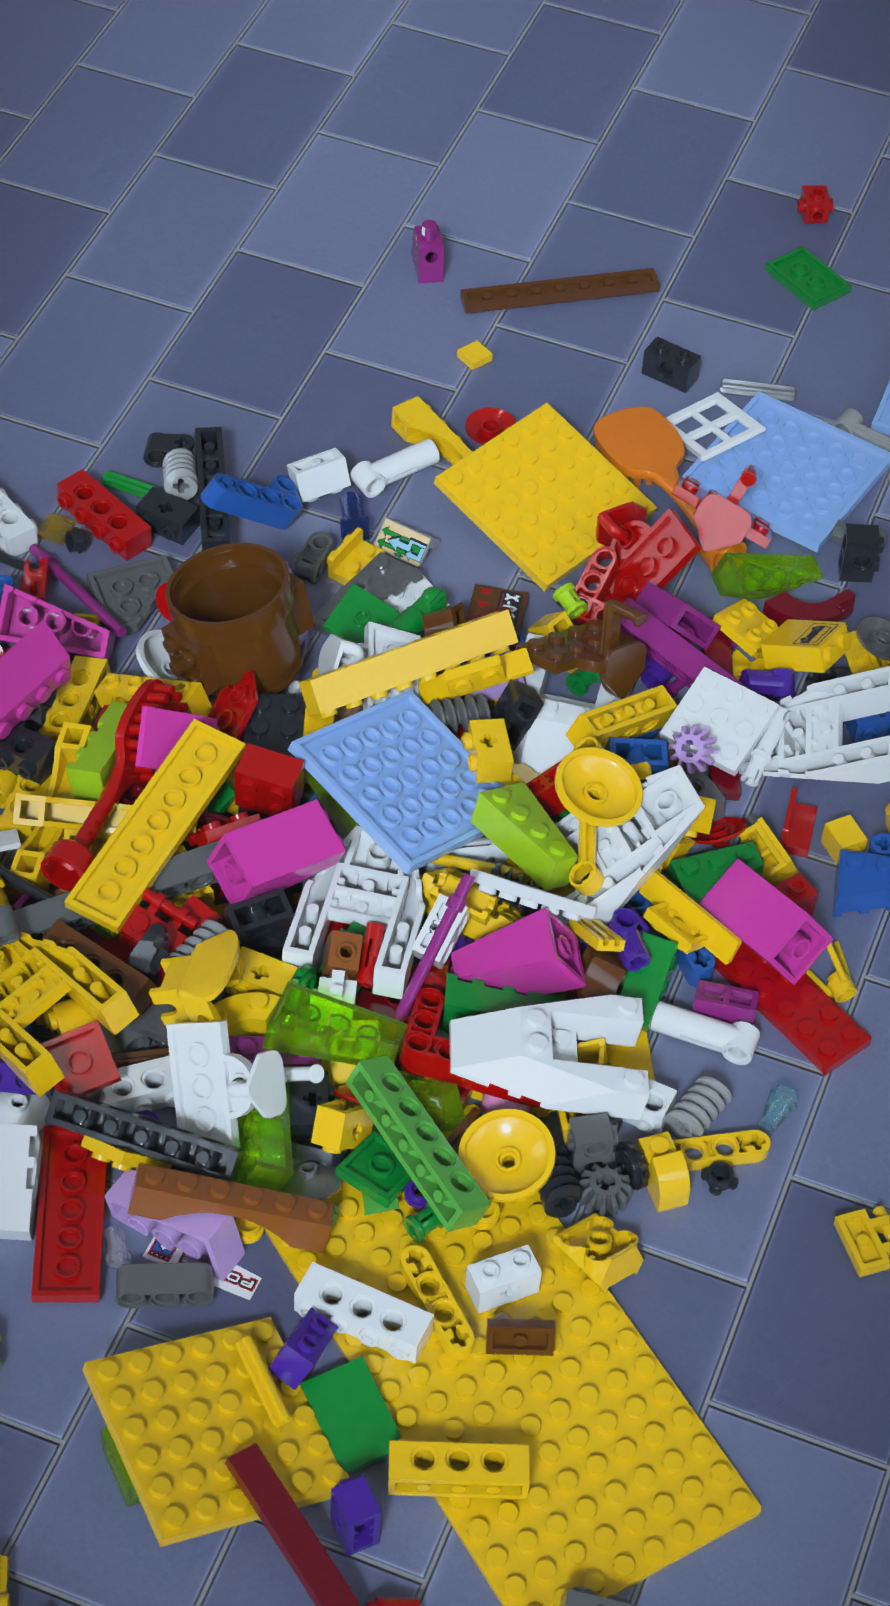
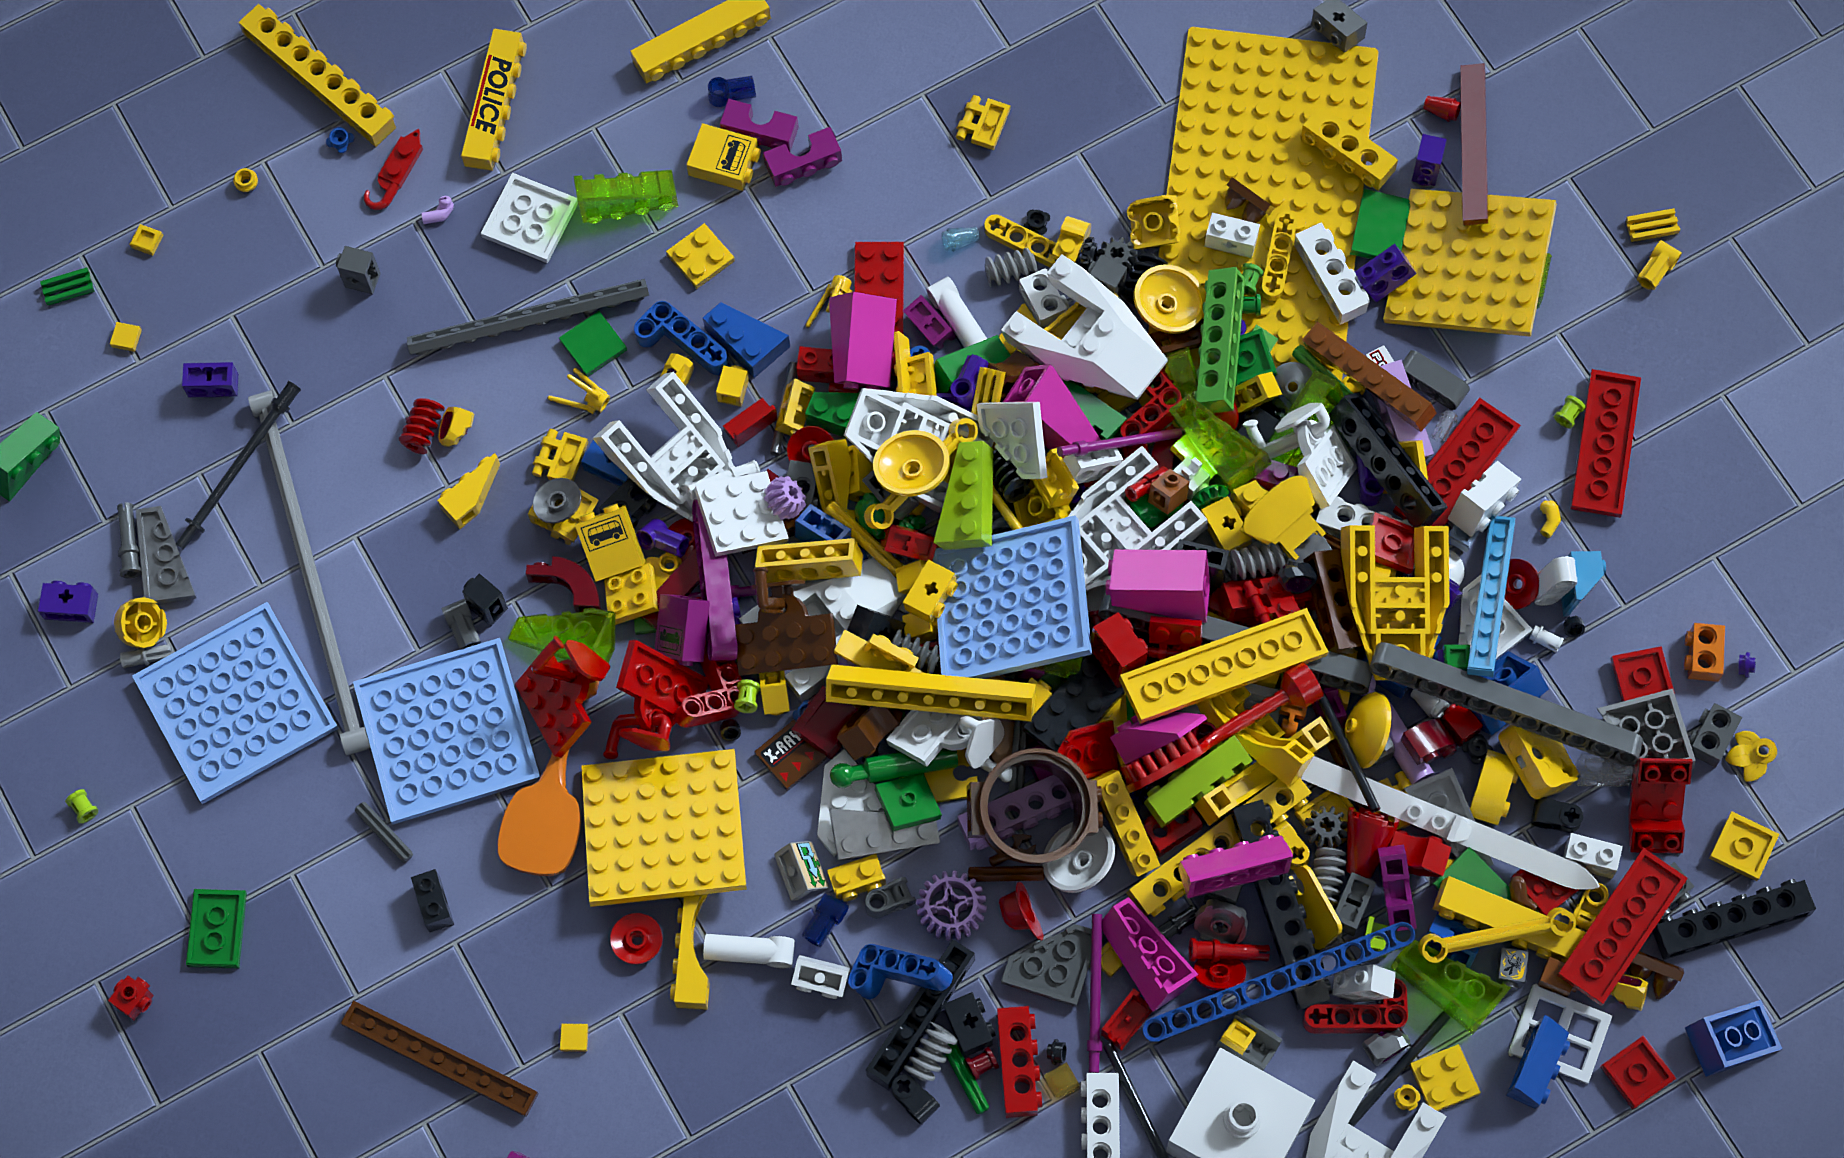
camera: 135 degrees left, 20 degrees up
(134, 495) = (982, 1063): none -> dark red bush
(263, 1381) = (1425, 266): yellow axle -> none
(435, 1241) = (1254, 272): none -> bright green bush
(734, 413) = (465, 810): white window -> none

